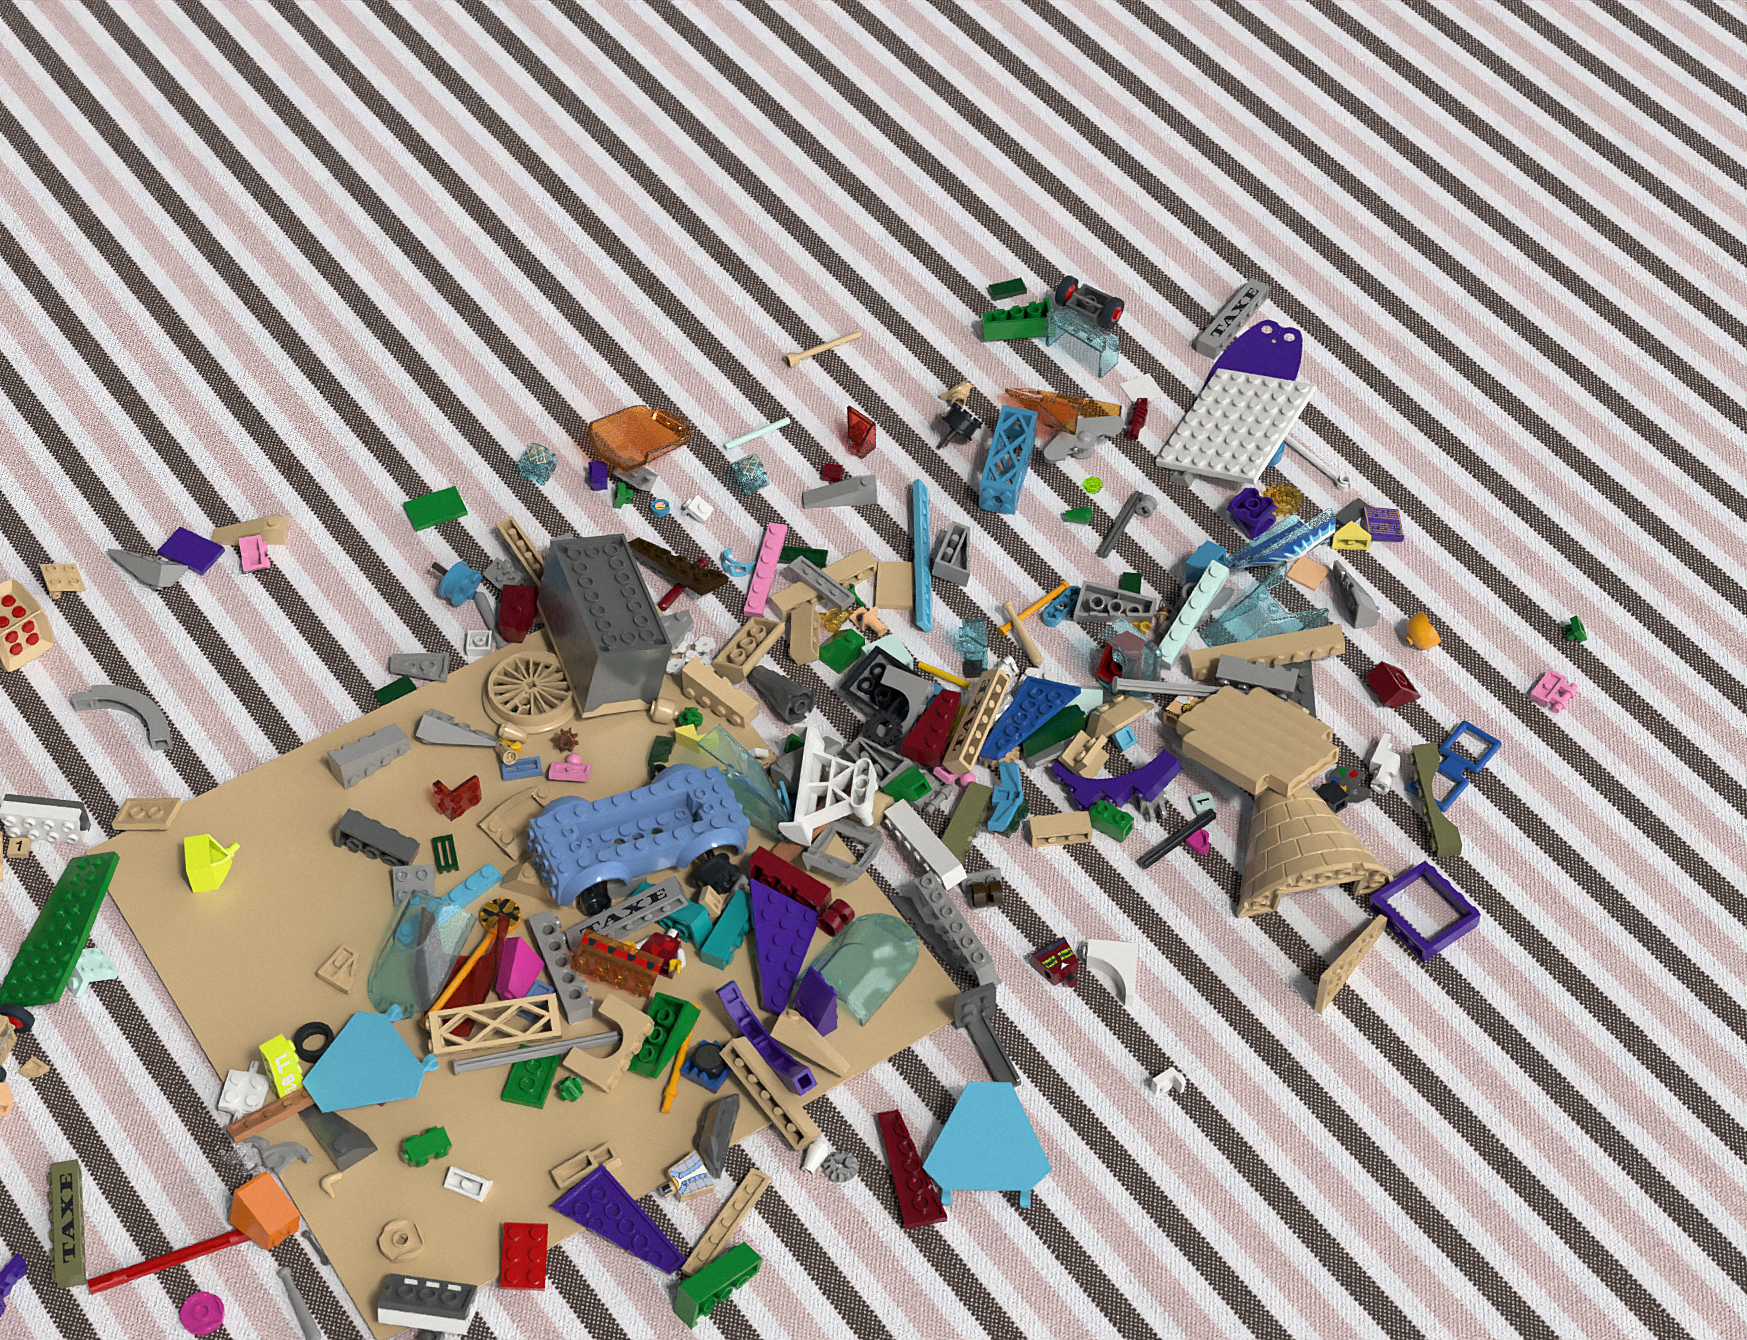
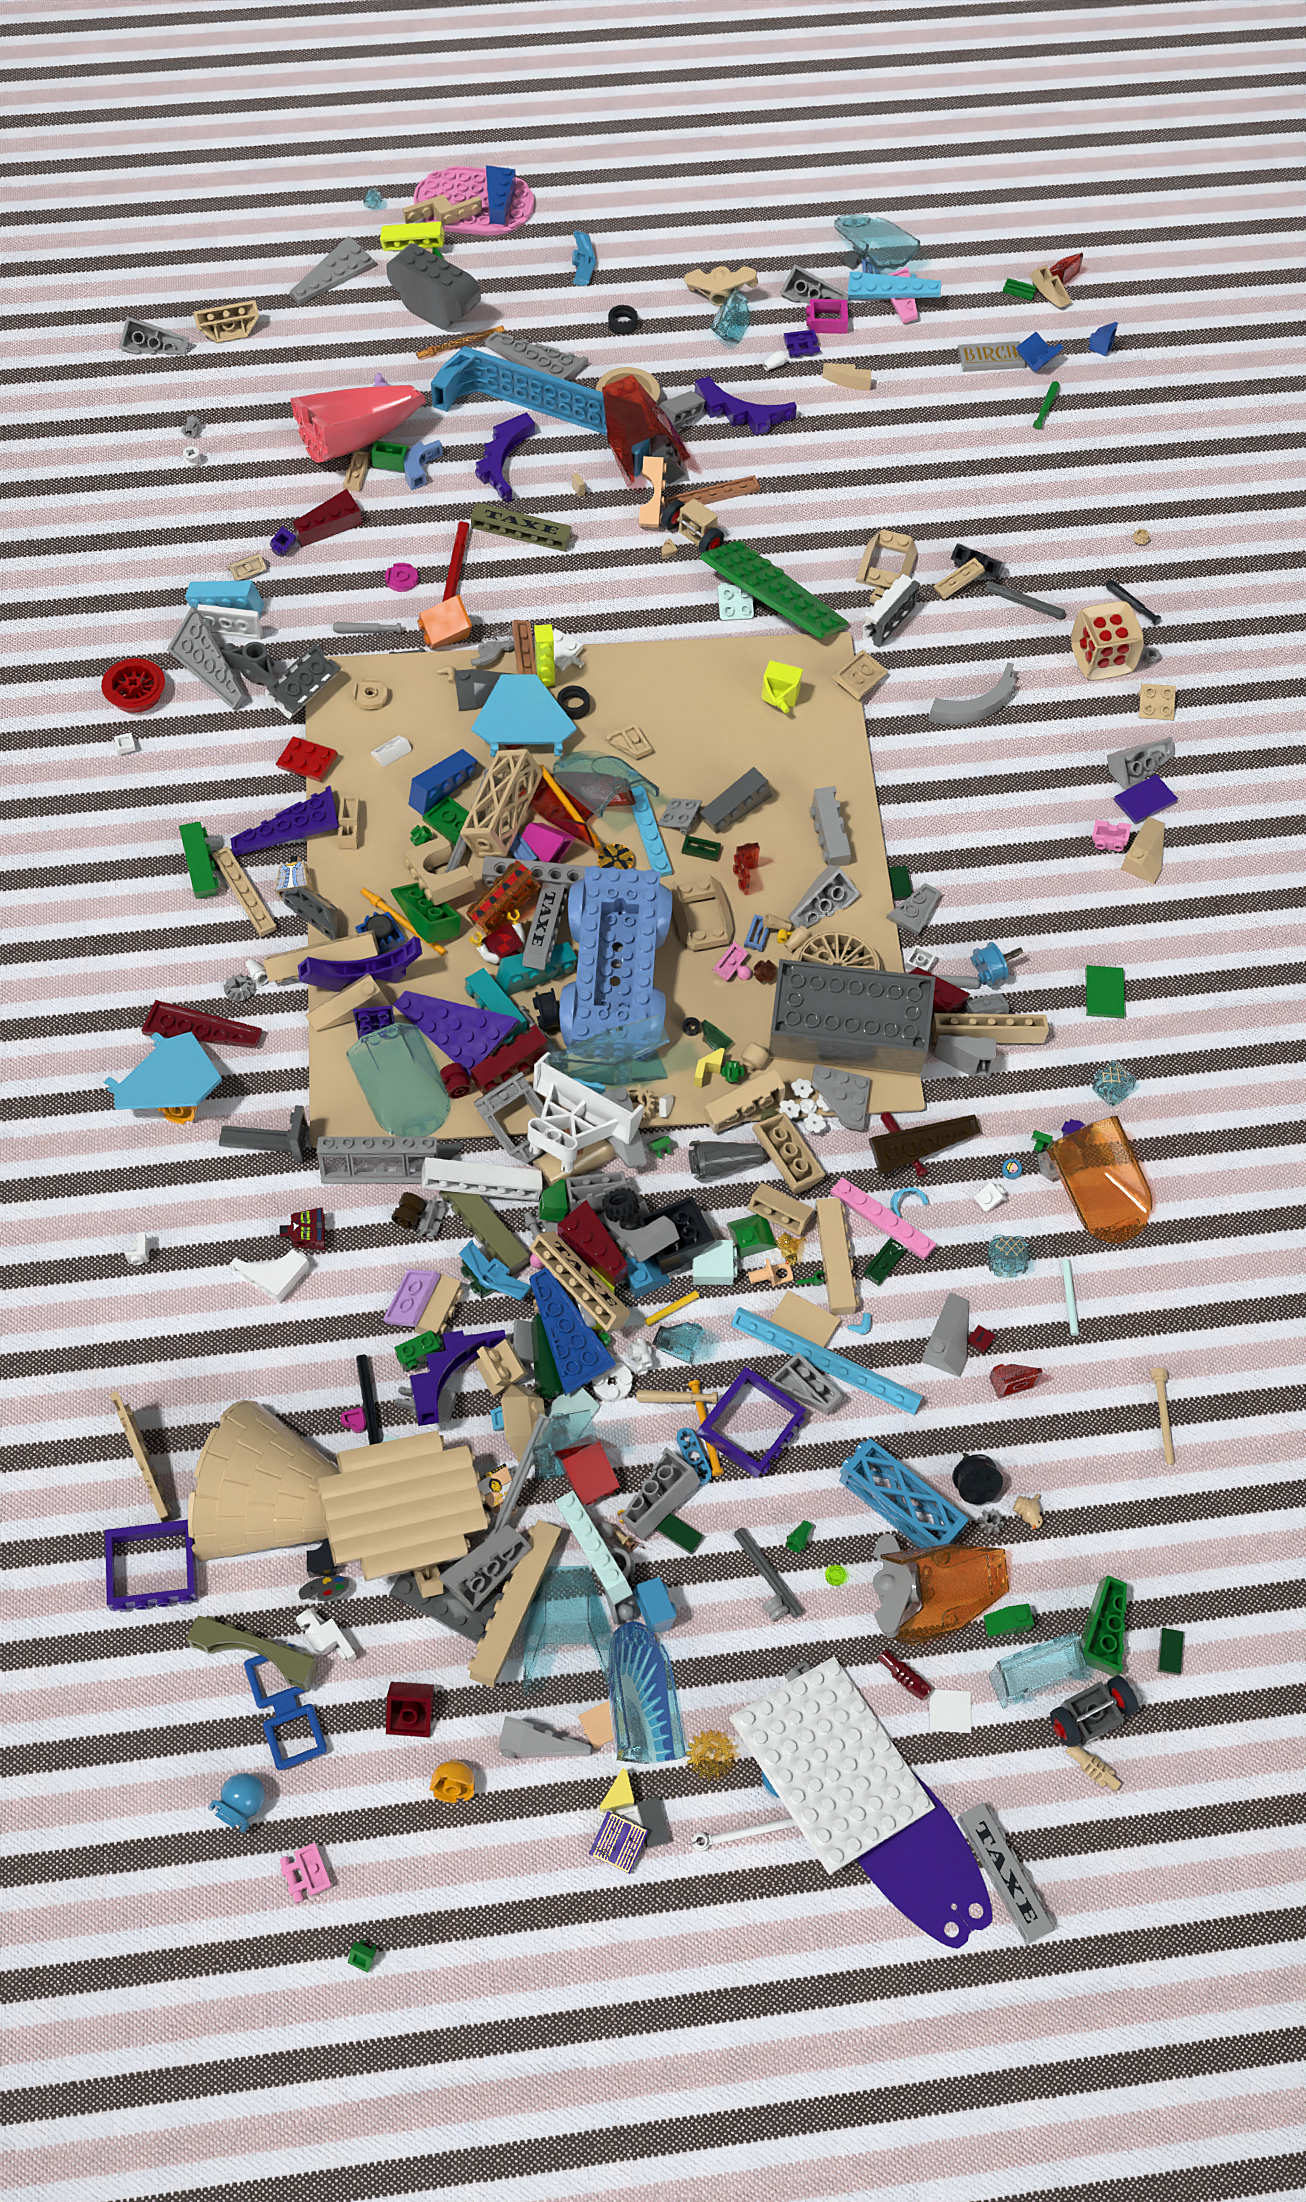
camera: 115 degrees right, 10 degrees up
(420, 1149) = (432, 731): green brick -> none
(489, 1104) = (441, 780): none -> blue wedge
(711, 901) = (523, 992): tan bracket -> none
(821, 583) = (828, 1244): light grey plate -> none
(869, 546) = (865, 1325): none -> medium azure animal
(985, 411) = (990, 1527): none -> light grey gear
(1020, 597) = (731, 1451): none -> dark purple window
(1052, 374) = (1009, 1620): none -> green slope
(1067, 849) = (411, 1297): none -> lavender tile
(1126, 295) = (1094, 1767): none -> tan hinge
(1252, 512) = (703, 1703): dark purple piece -> none
(1542, 748) = (240, 1799): none -> dark azure tile

